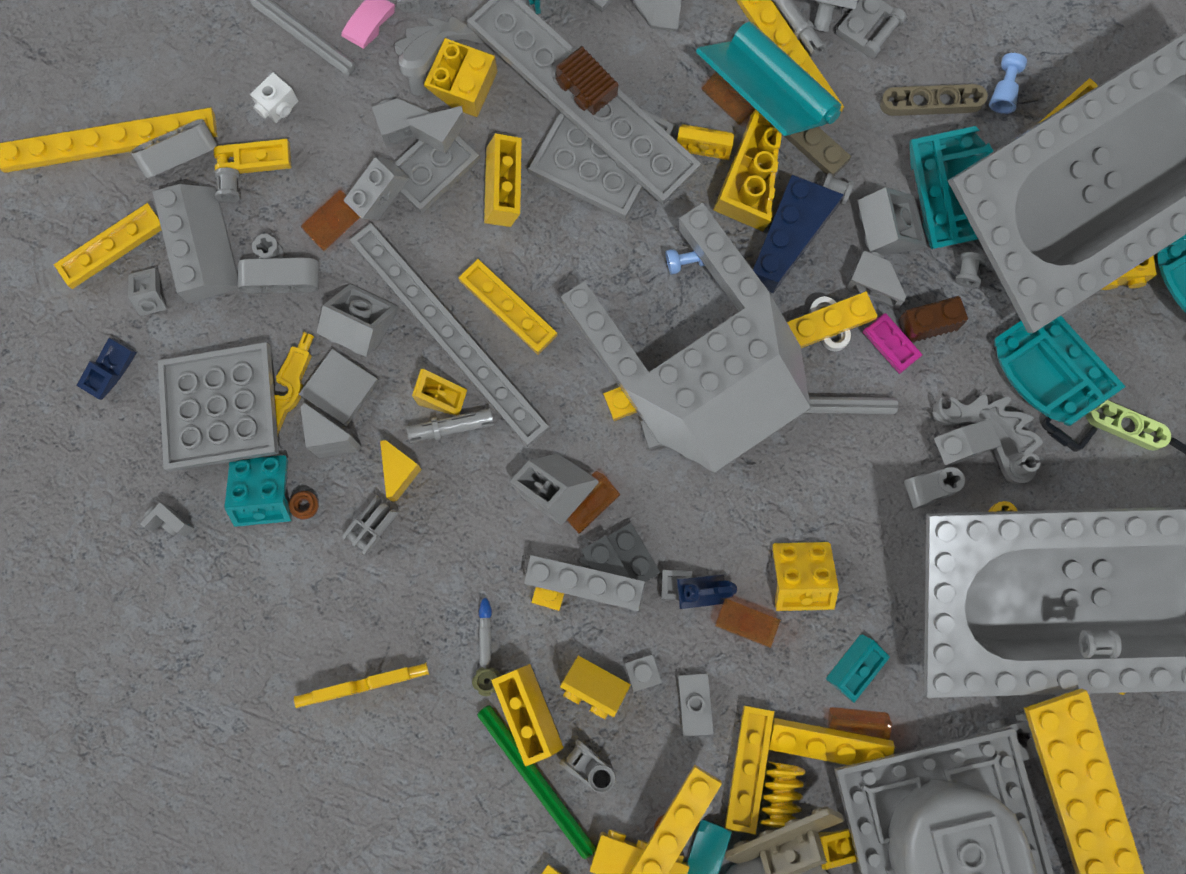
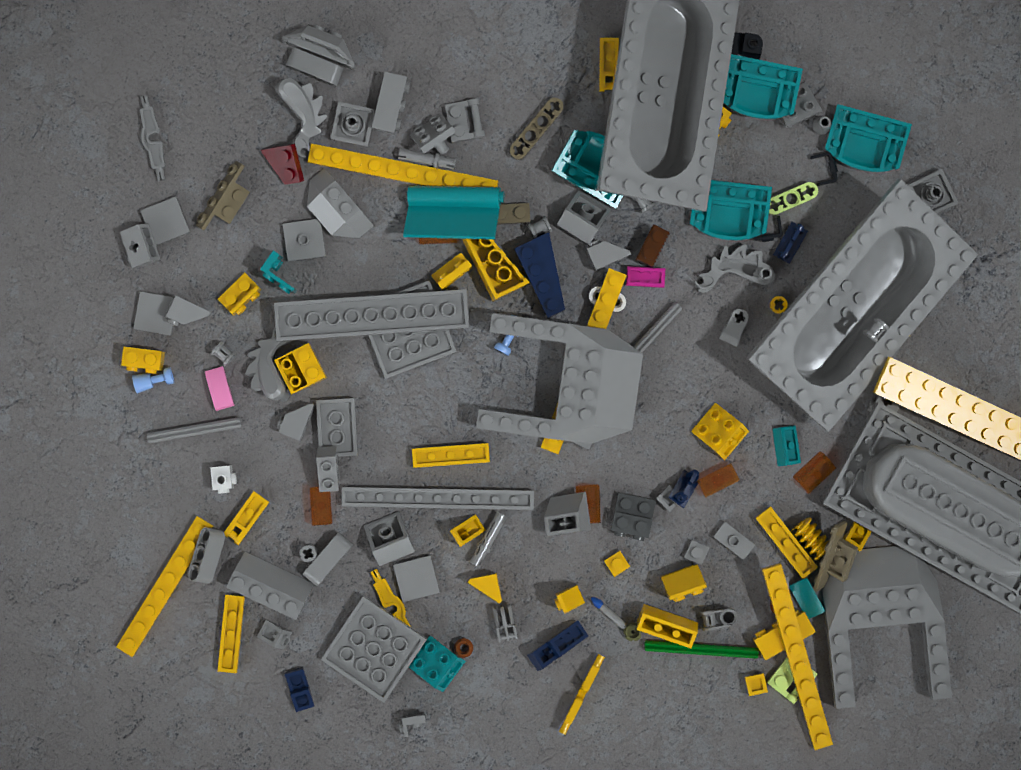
camera: 45 degrees left, 10 degrees up
(227, 185) = (251, 544): light grey bush -> none
(324, 437) = (440, 606): light grey slope -> none
(395, 607) = (557, 645): none -> dark blue slope
(438, 128) = (324, 407): light grey slope -> none
(459, 571) = (569, 599): none -> yellow slope
(503, 180) = (381, 398): yellow brick -> none
(585, 582) = (629, 543): light grey plate -> none
(586, 81) = (370, 310): reddish brown brick -> none
(826, 743) = (807, 494): yellow plate -> none
(967, 442) = (728, 290): light grey slope -> none
(1006, 91) = (567, 88): light blue piece -> none
(1083, 466) = (790, 242): none -> dark blue hinge

